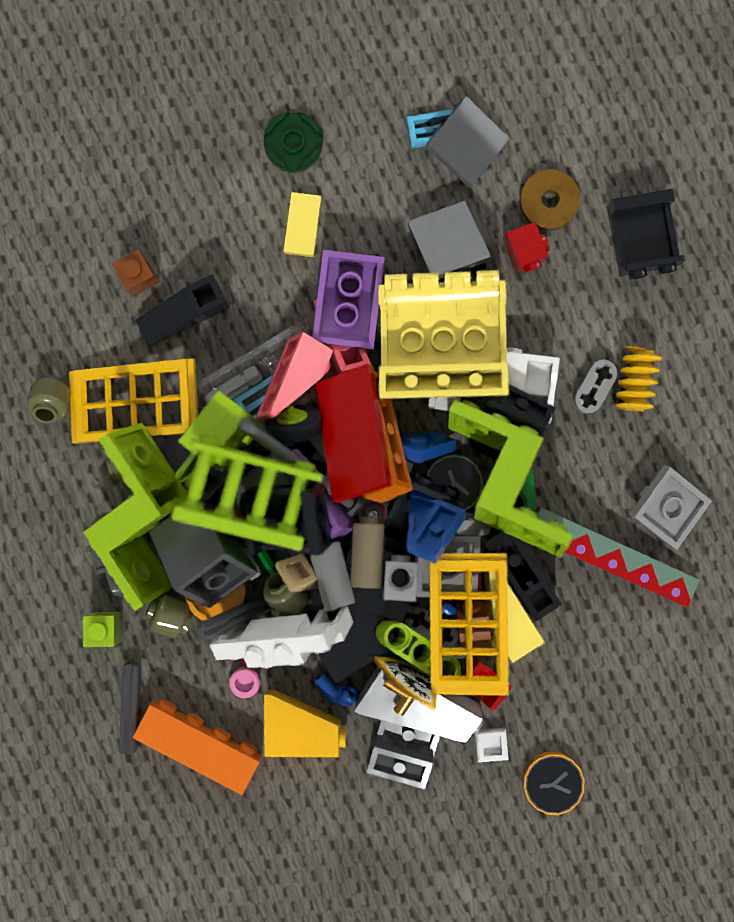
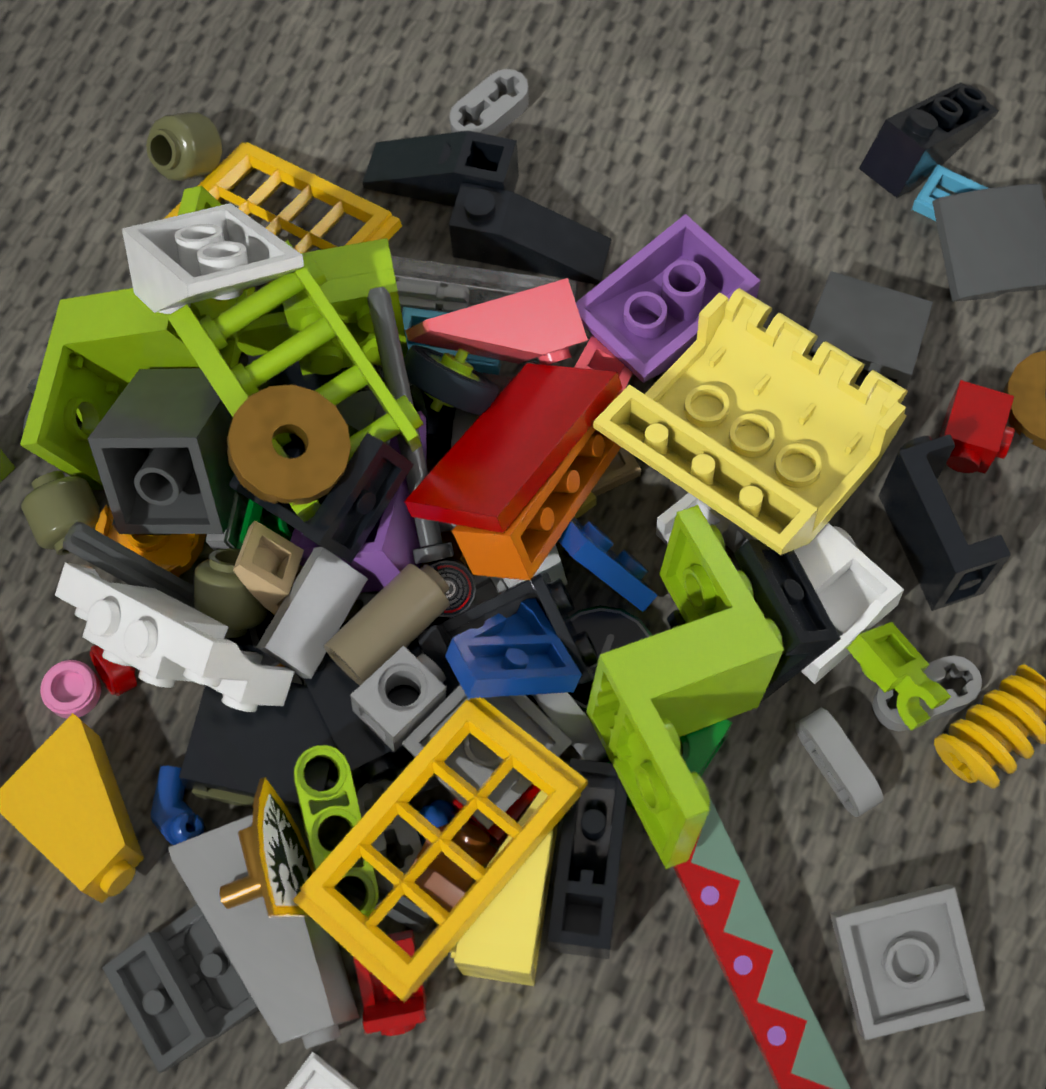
camera: 45 degrees right, 20 degrees down
(135, 273) = (427, 89): dark orange brick -> none
(163, 254) = (485, 103): none -> light grey beam
(164, 478) = (203, 257): none -> white slope
(252, 312) = (525, 236): none -> black slope
(294, 528) = (295, 412): none -> pearl gold tile
(299, 149) = (759, 110): dark green tile -> none
(302, 224) = (688, 189): light yellow tile -> none
(392, 104) = (925, 136): none -> black slope
(545, 317) = (929, 531): none -> black panel
(576, 391) = (896, 664): none -> lime plate
(583, 447) = (839, 762): none -> light grey beam

